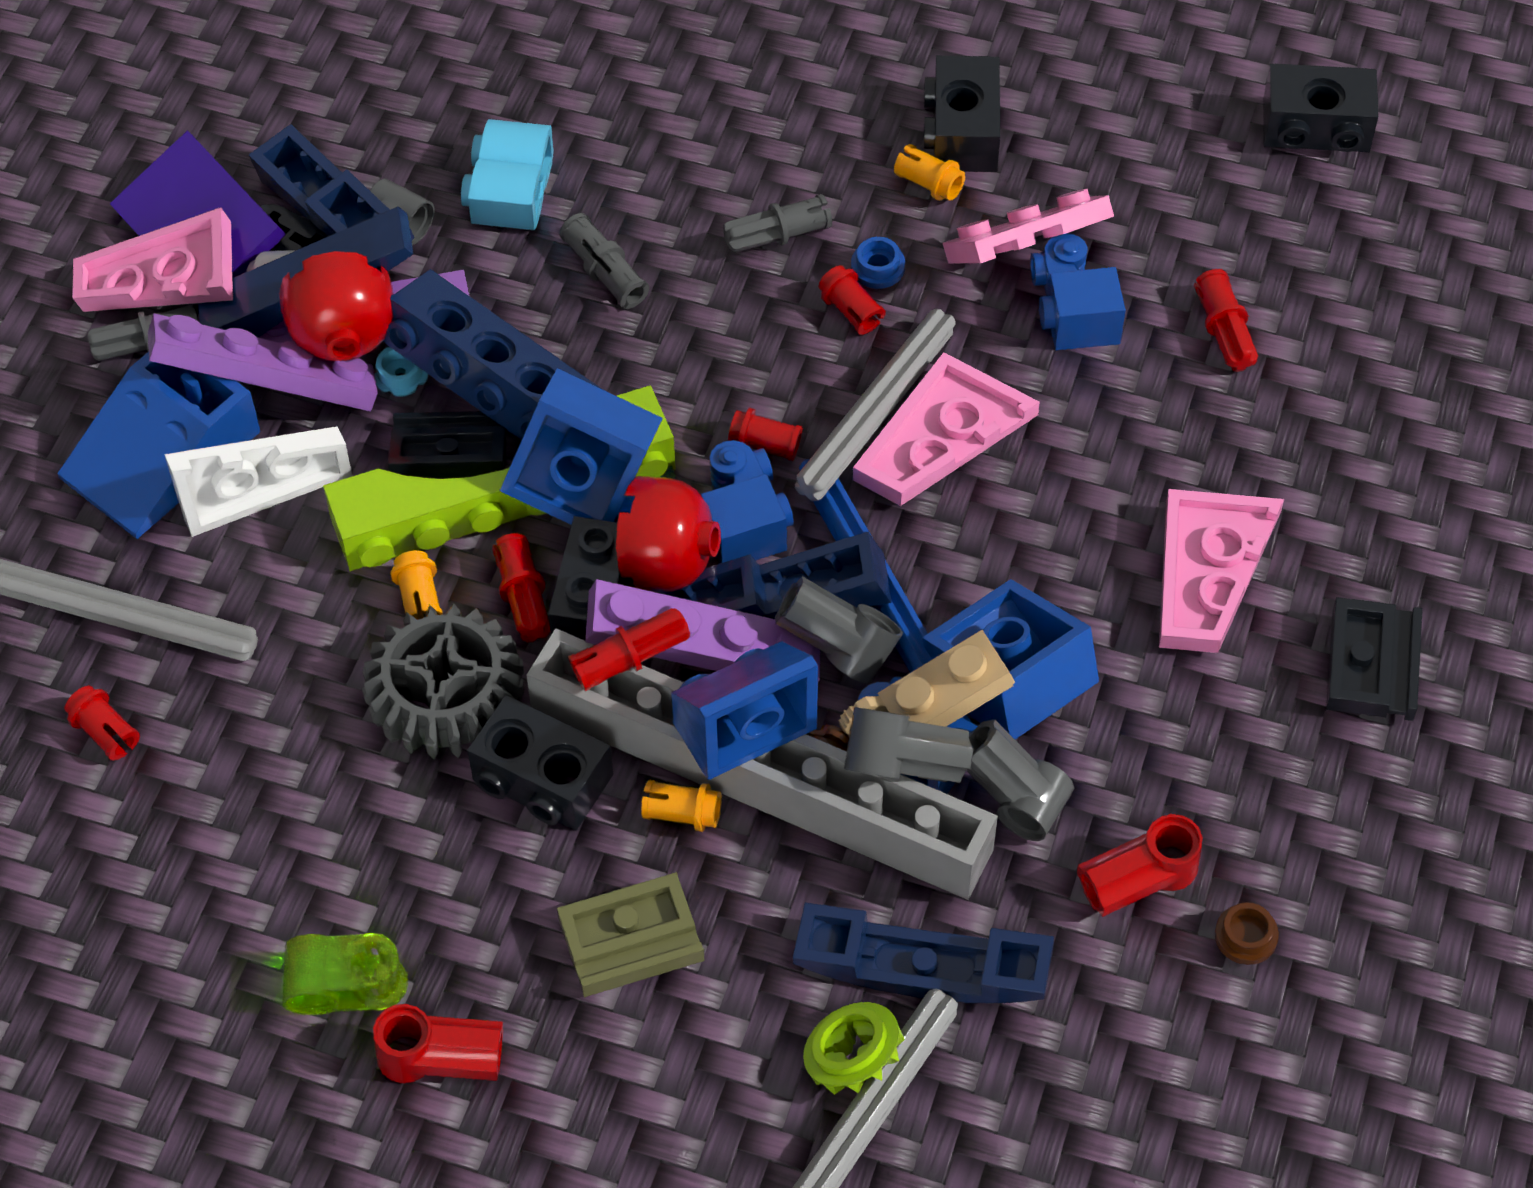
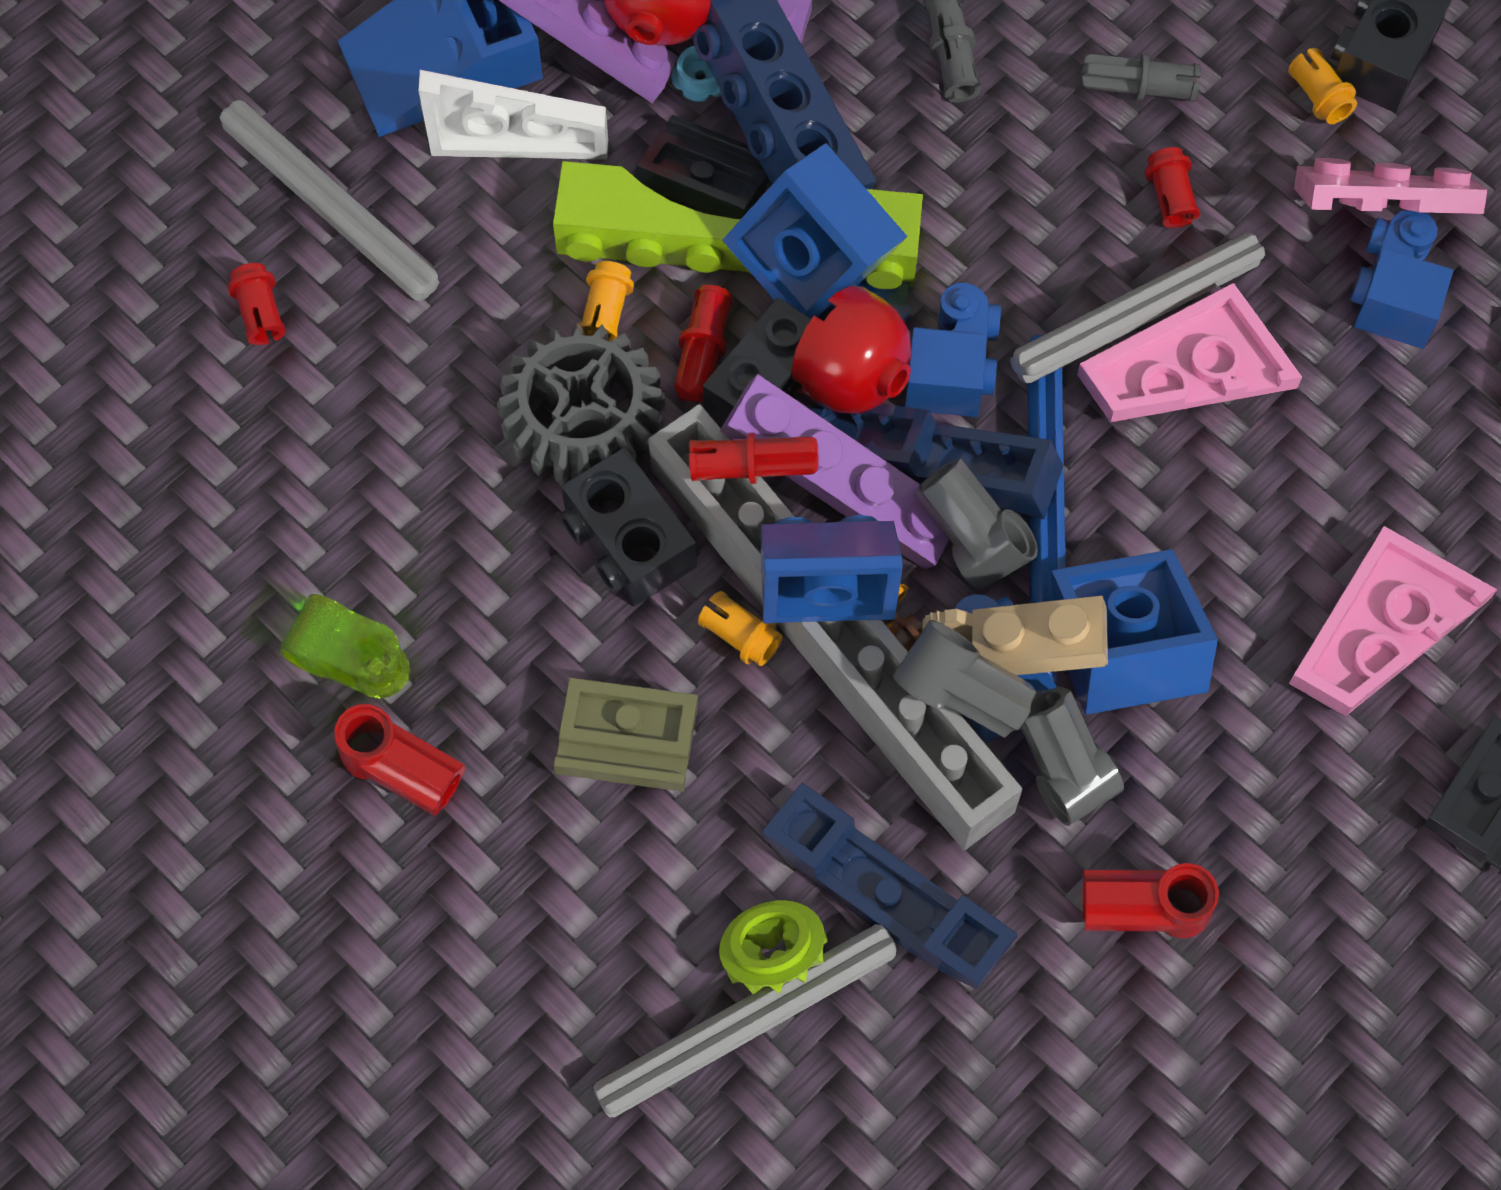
camera: 25 degrees right, 10 degrees up
(765, 433) = (1014, 290): red pin -> none
(878, 263) = (1225, 148): blue plate -> none
(1246, 933) = (1216, 1016): reddish brown plate -> none

